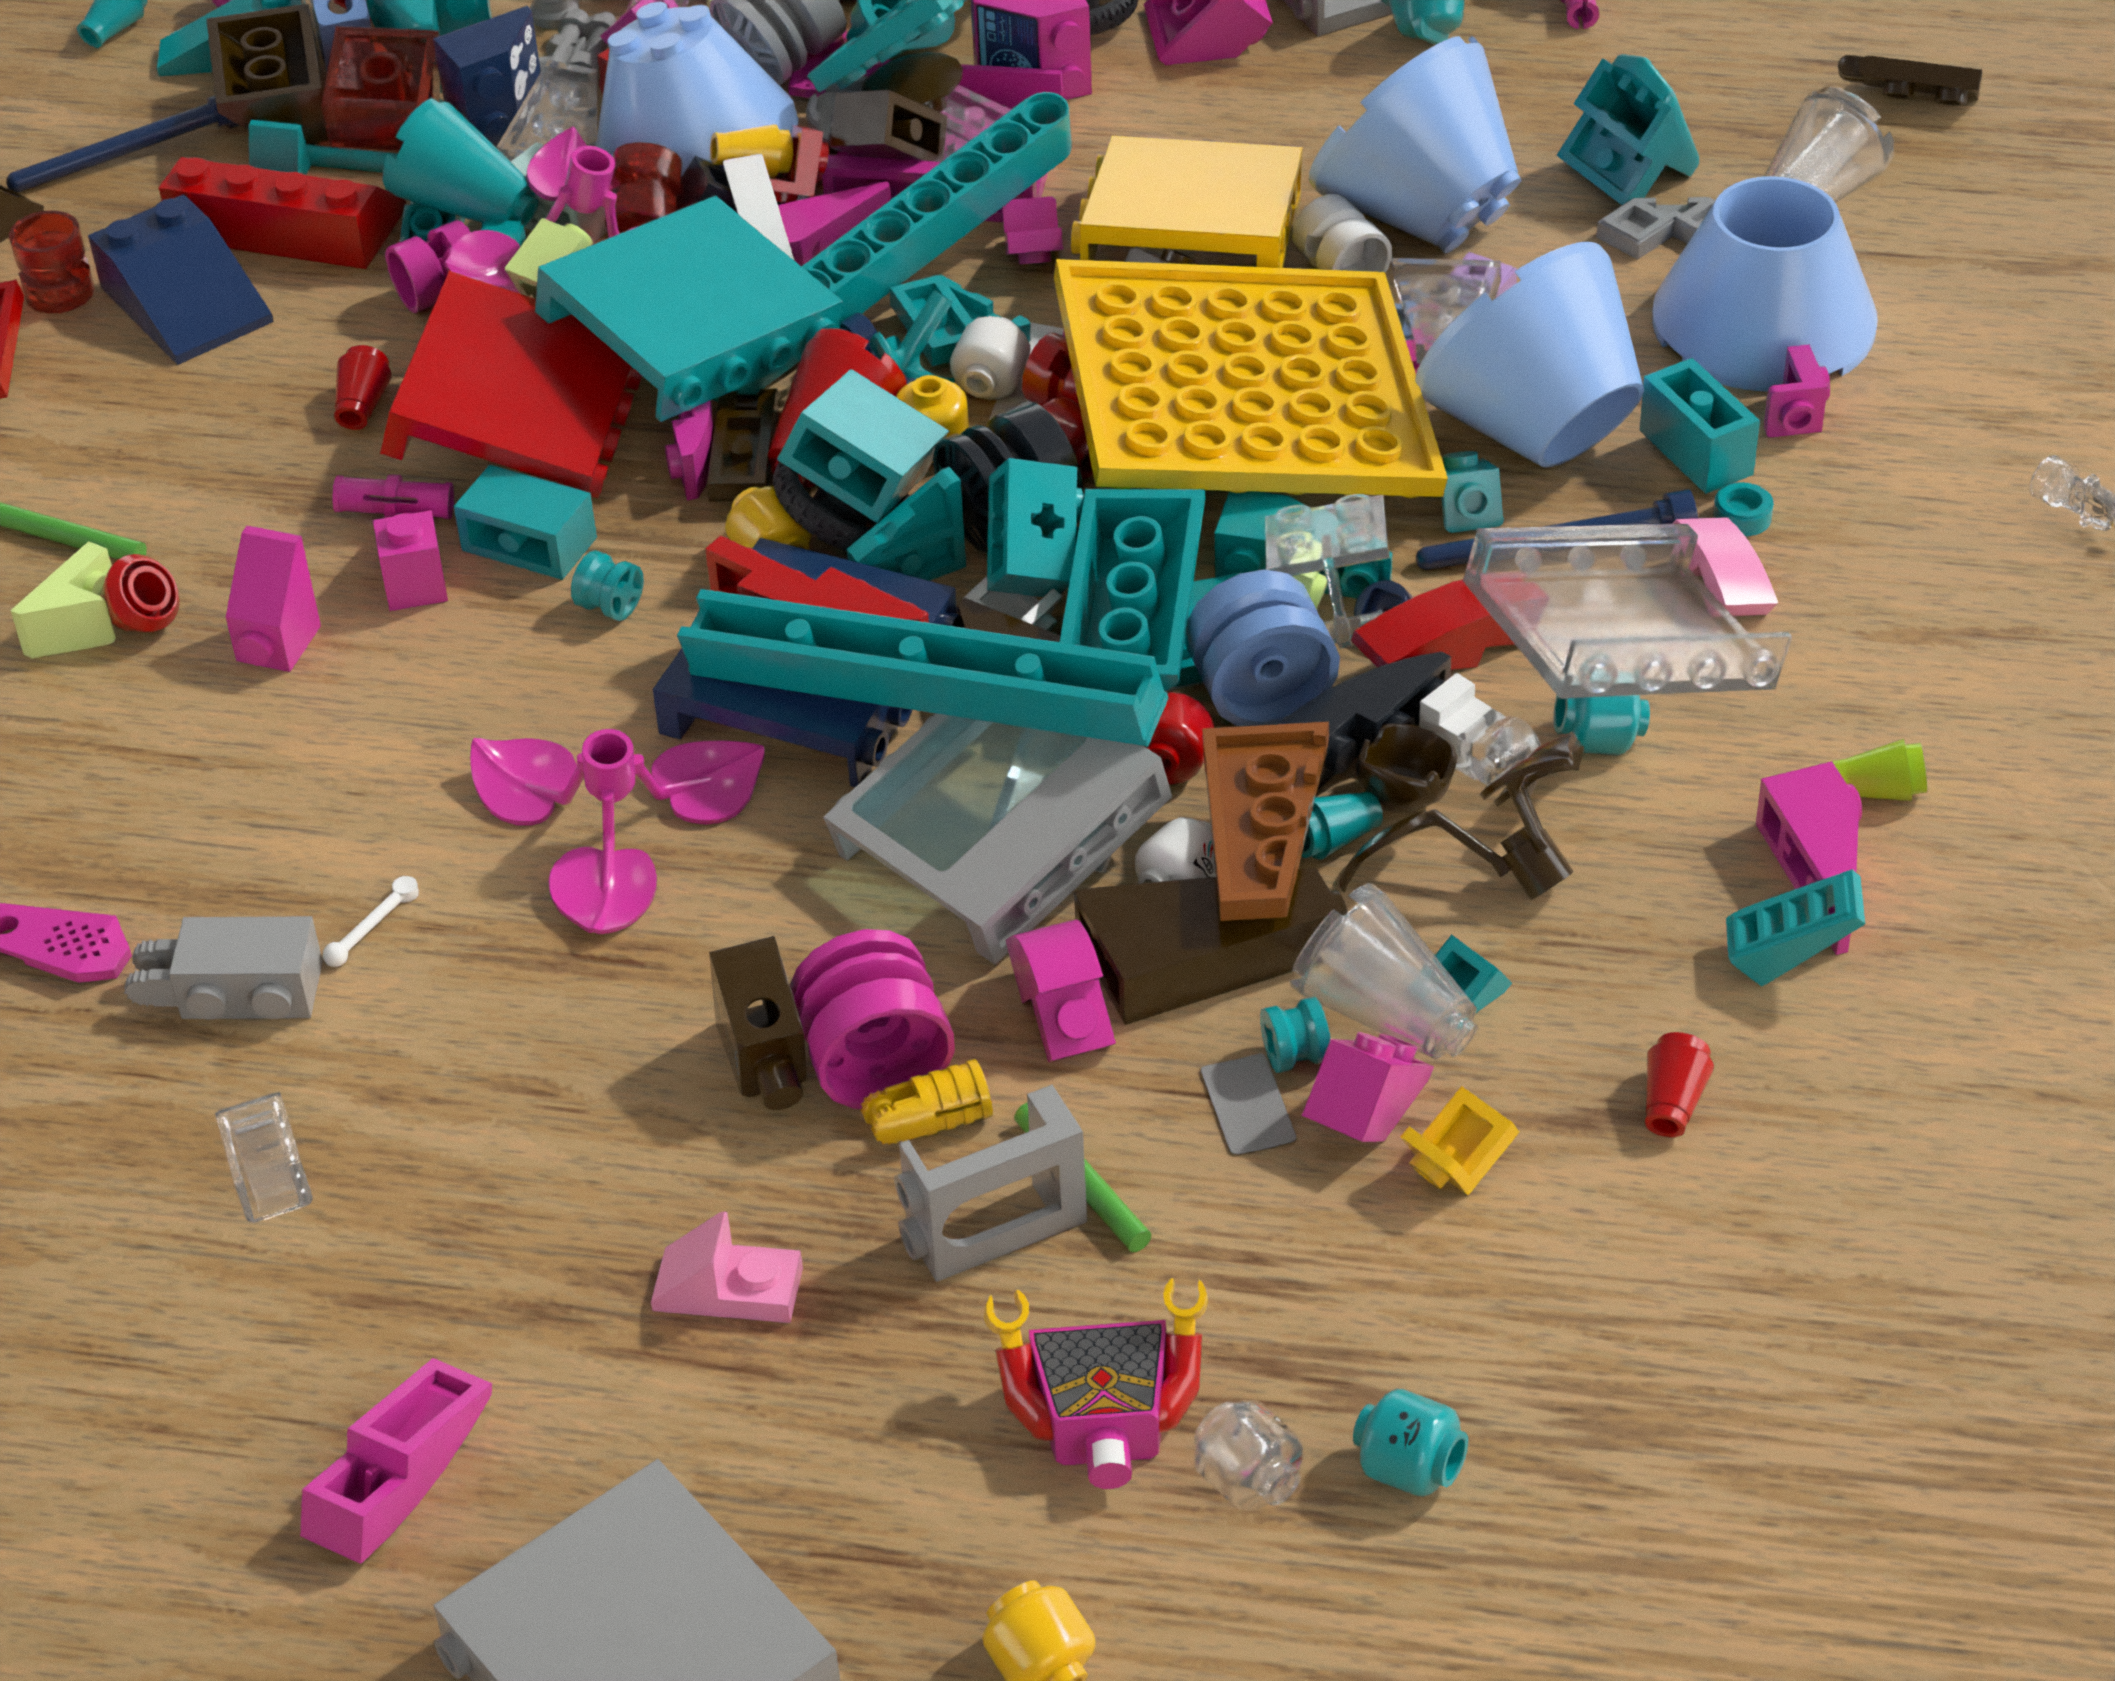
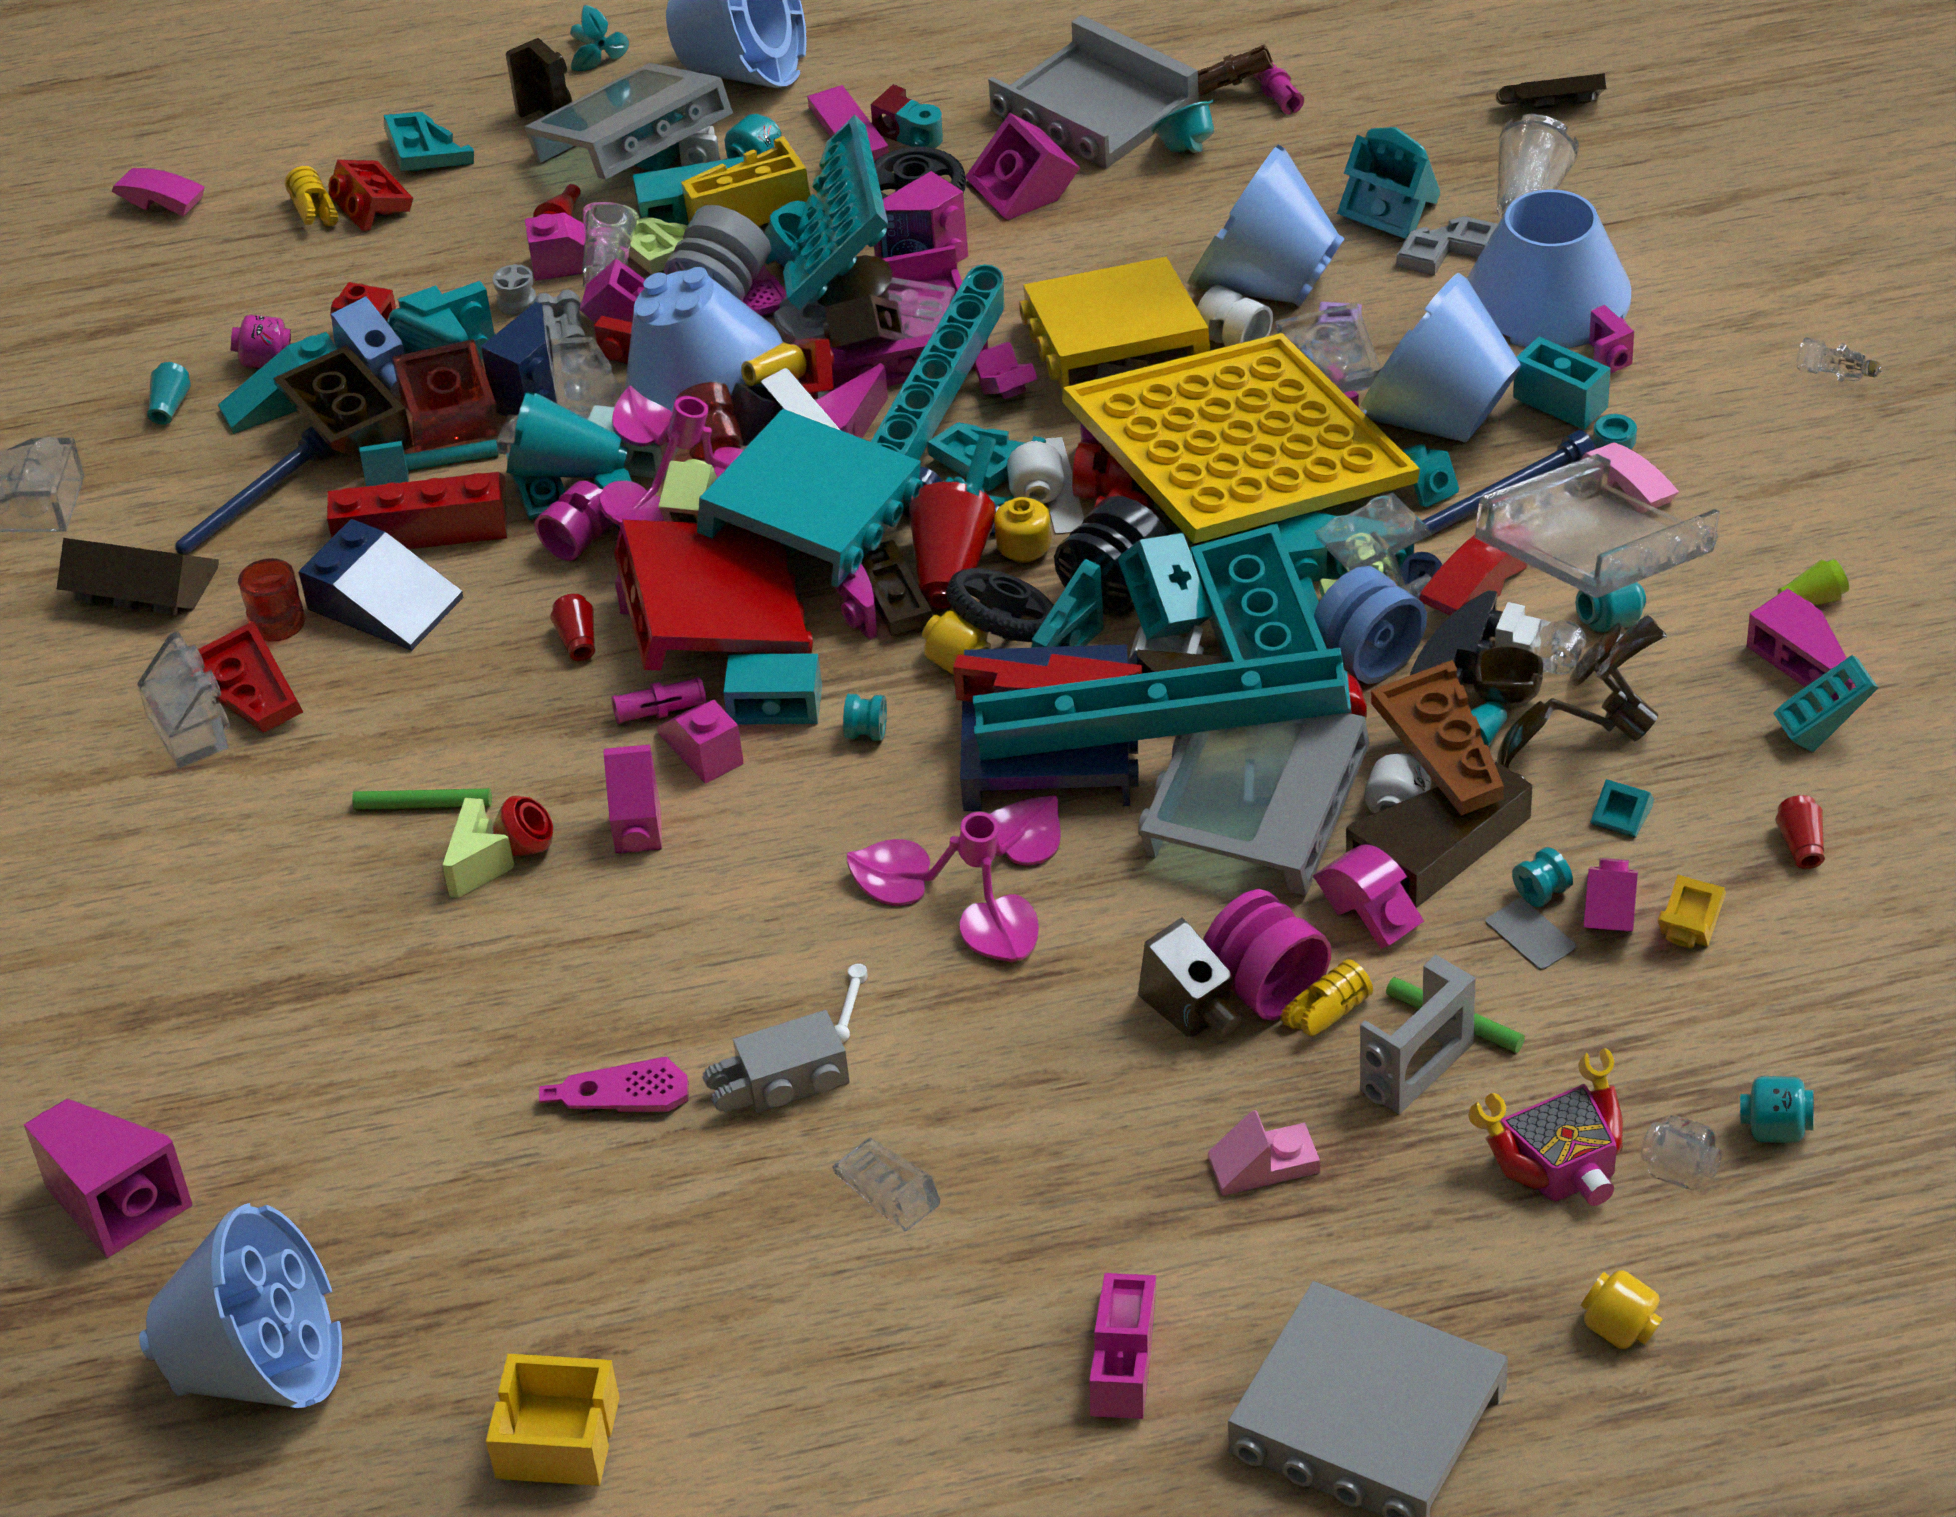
camera: 20 degrees left, 0 degrees up
(862, 445) = (1010, 561): teal brick -> none
(1385, 977) = (1586, 820): clear cone -> none

